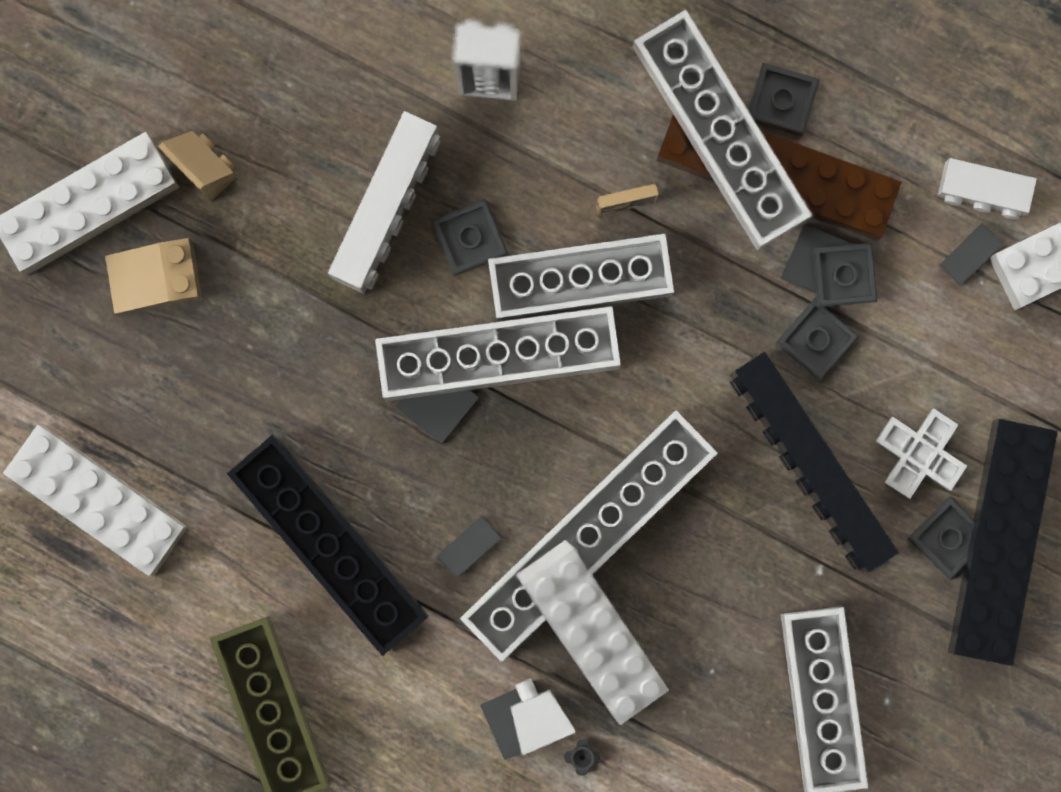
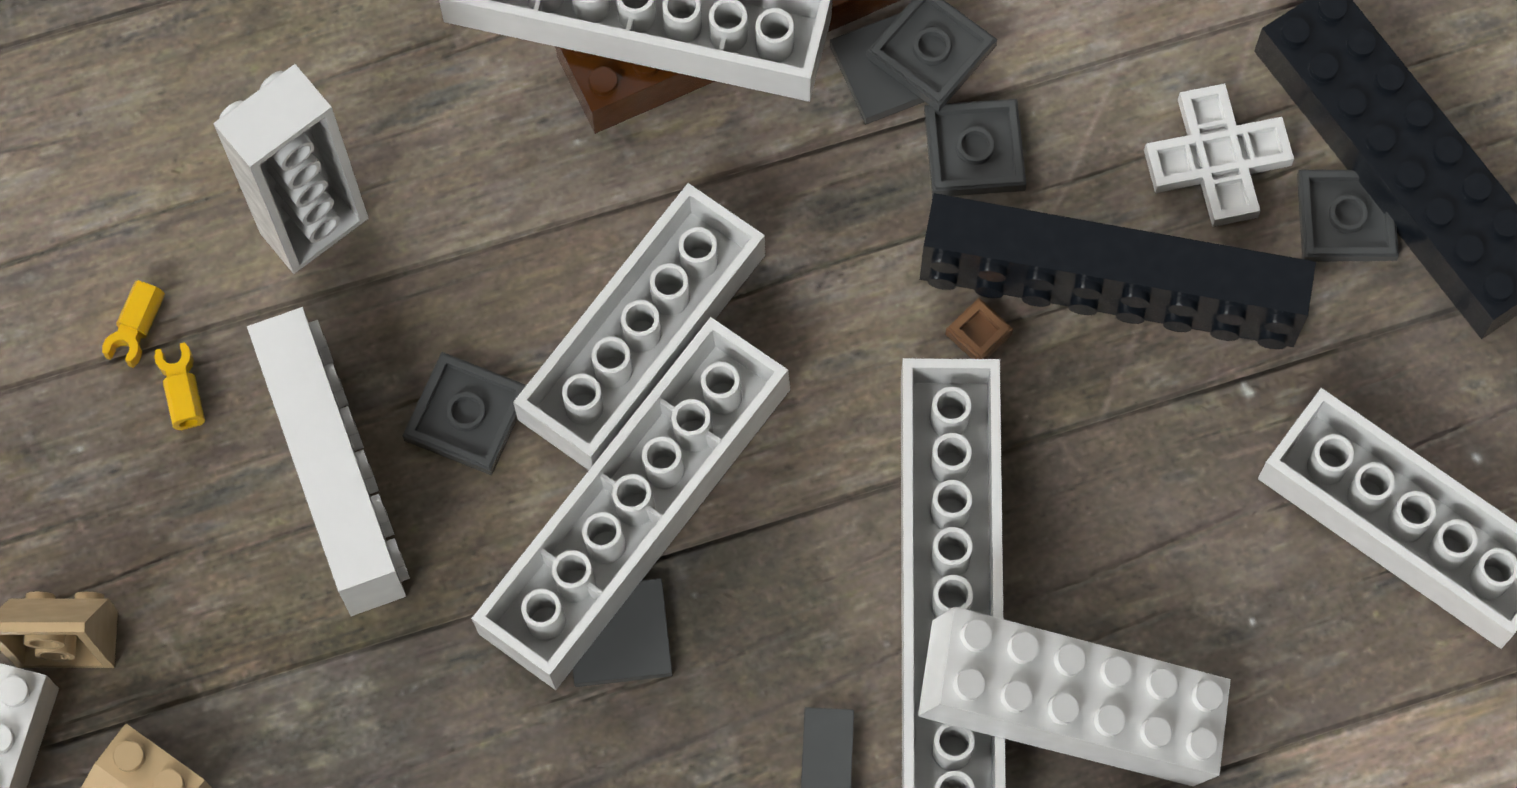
camera: 45 degrees left, 15 degrees down
(357, 102) = (181, 390): none -> yellow bar
(366, 49) = (134, 321): none -> yellow bar
(627, 199) = (606, 192): tan tile -> none
(729, 425) = (979, 331): none -> medium nougat tile

